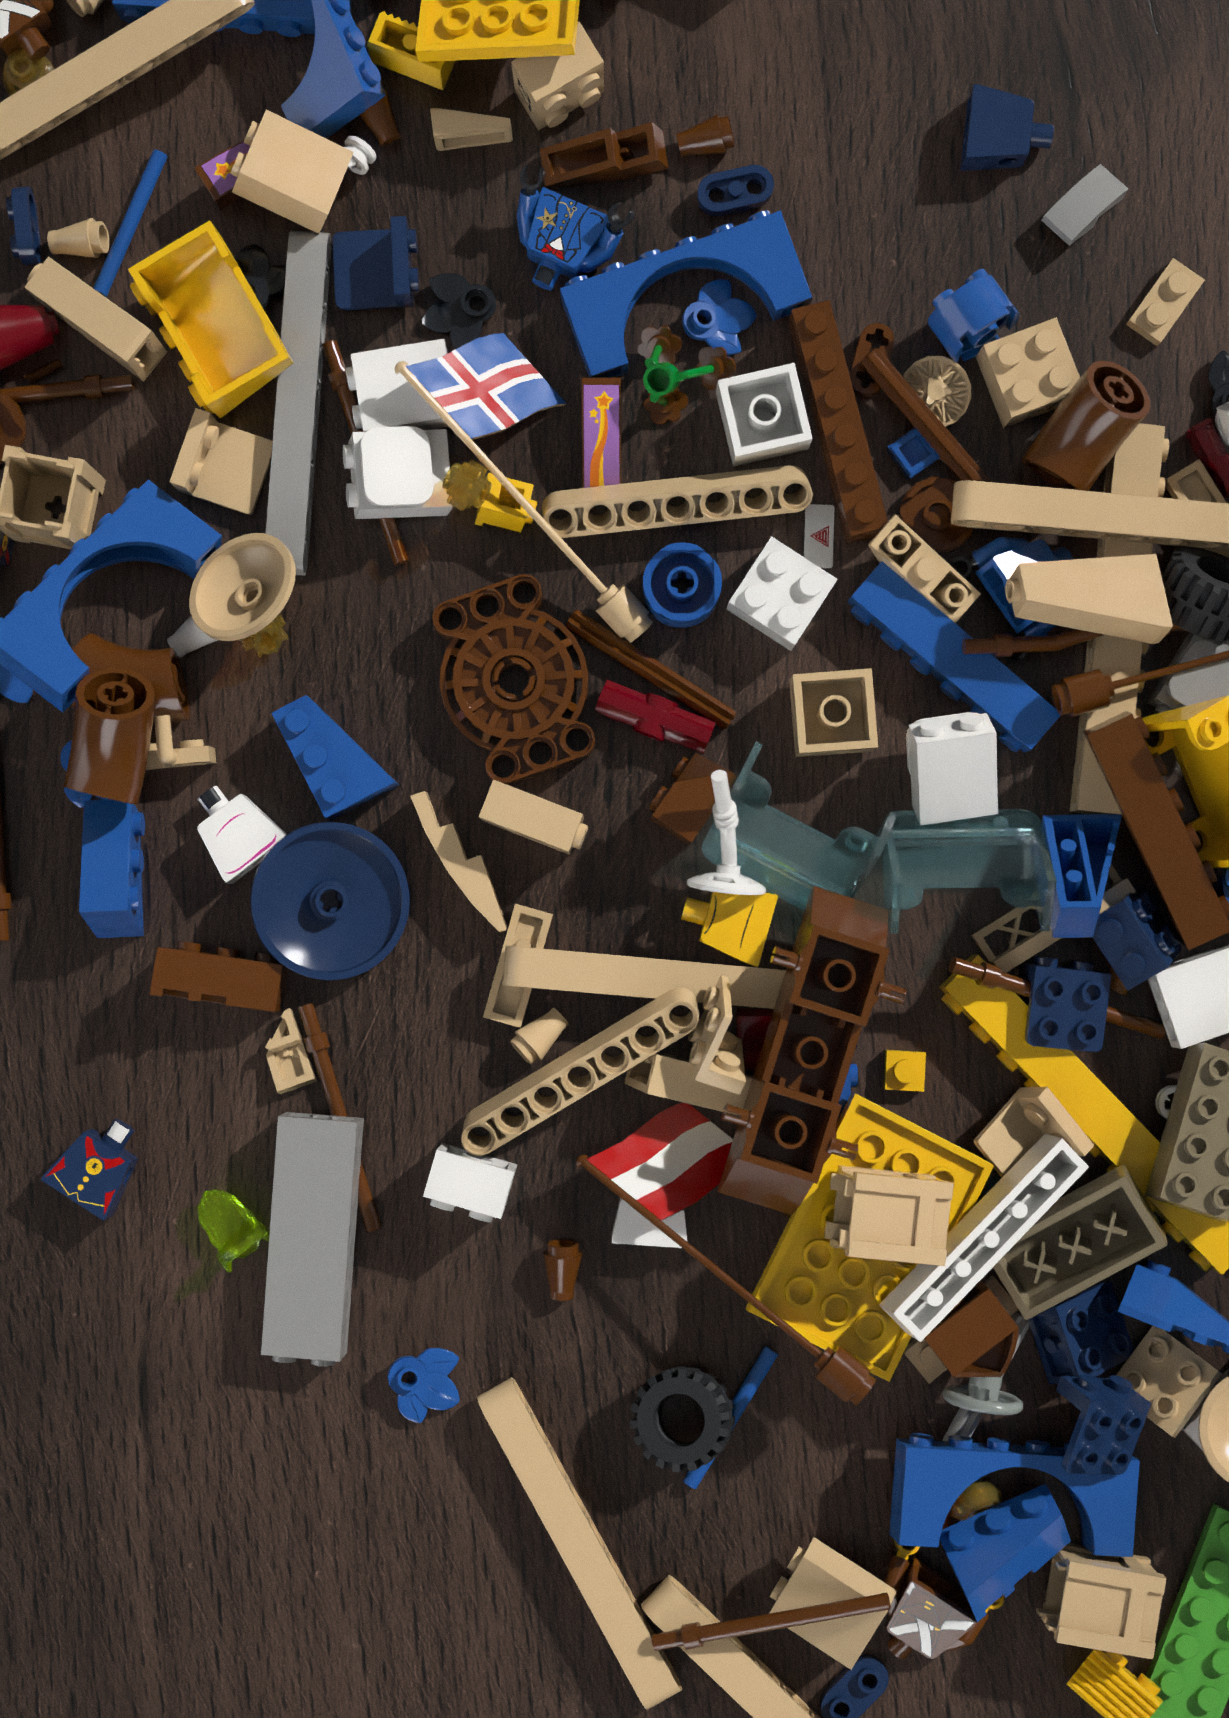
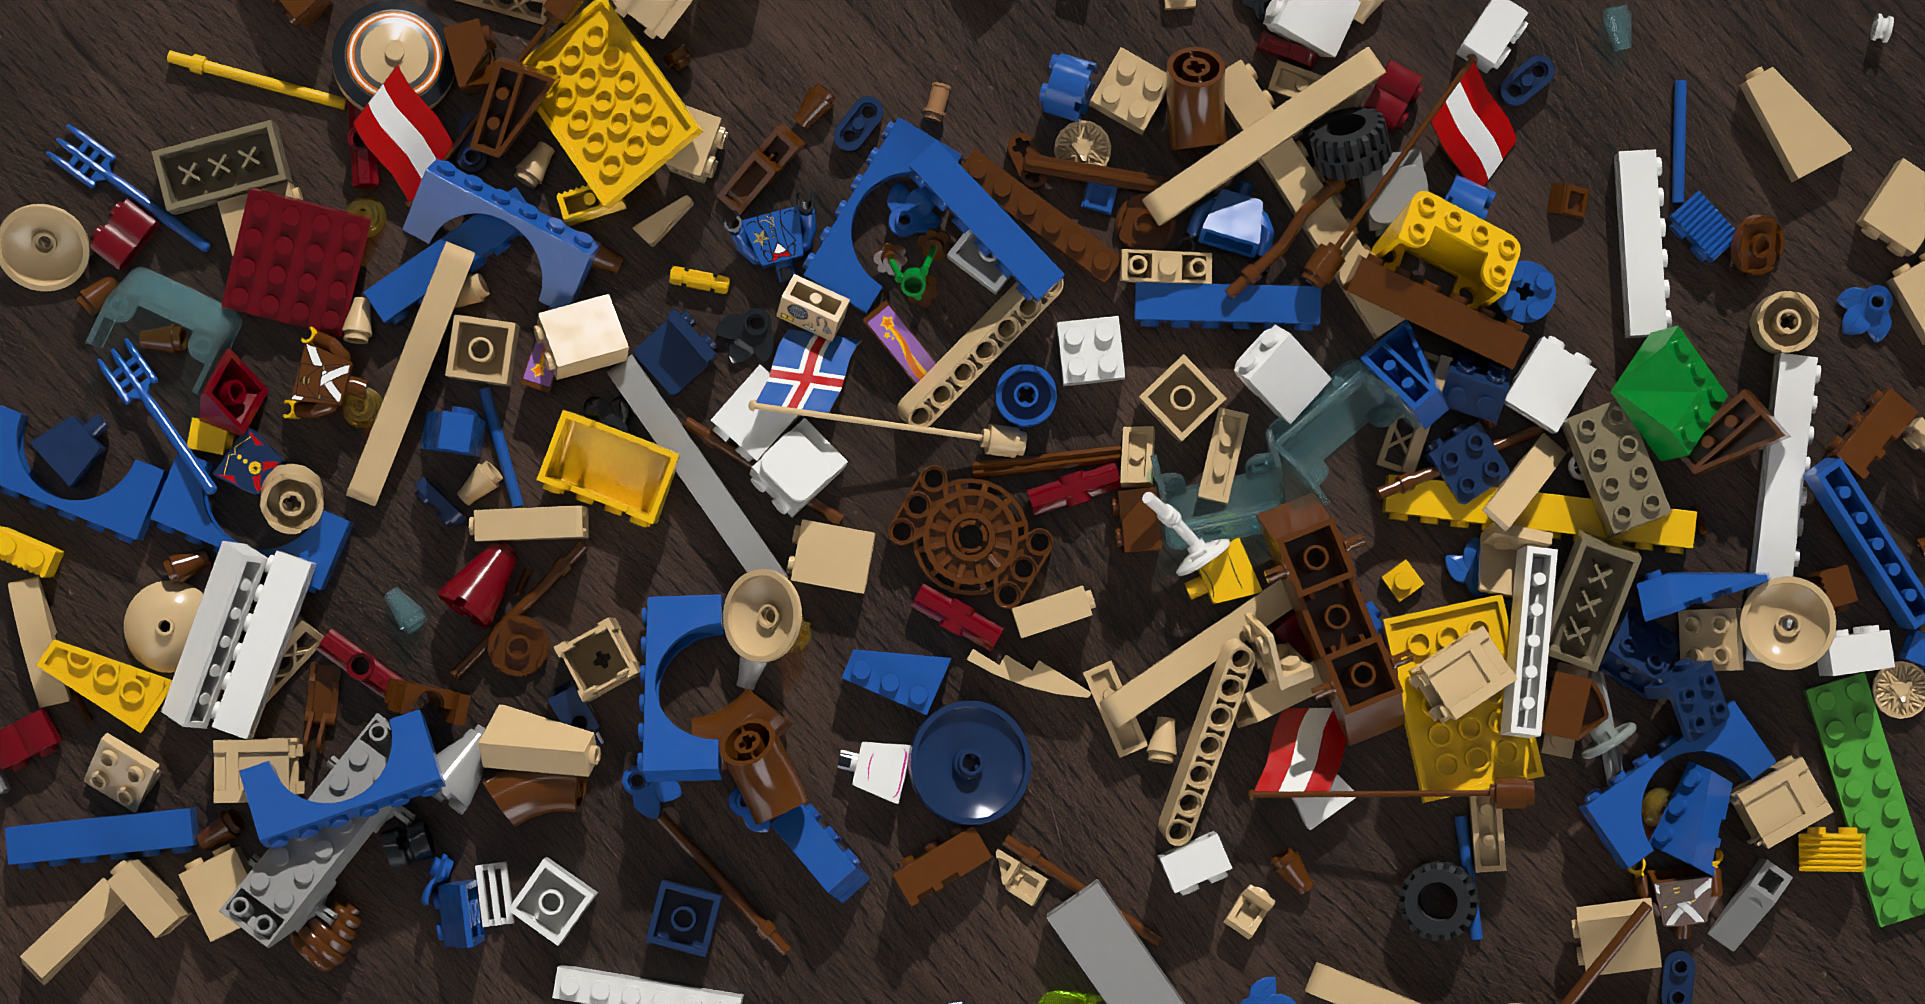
camera: 30 degrees left, 0 degrees up
(95, 166) = (454, 432): none -> blue wedge
(186, 109) = (482, 350): none -> tan brick
(189, 754) = (809, 743): tan plate -> none
(222, 464) = (684, 549): tan bracket -> none
(224, 46) = (472, 291): none -> tan cone
(362, 155) = (610, 288): white bush -> none
(362, 588) = (831, 556): none -> tan brick
(436, 748) = (957, 617): none -> dark red piece
(455, 217) = (699, 280): none -> yellow axle
(466, 485) = (847, 442): clear yellow gear -> none
(486, 1273) = (1249, 910): none -> tan bracket
(502, 508) = (865, 434): yellow brick -> none
(543, 329) = (813, 307): none -> tan brick
(738, 735) = (1136, 465): none -> tan plate
(782, 1392) = (1487, 835): none -> tan plate
(783, 375) = (986, 221): none -> blue brick
(819, 535) = (1083, 295): white sticker -> none
(821, 237) = (937, 102): none -> medium nougat pin
(827, 803) = (1223, 455): none -> tan plate
(978, 1109) = (1466, 567): none -> blue plate
(991, 1675) = (1750, 903): none -> light grey slope
(1094, 595) = (1282, 201): tan slope -> none
(1107, 1071) = (1524, 481): none -> tan slope

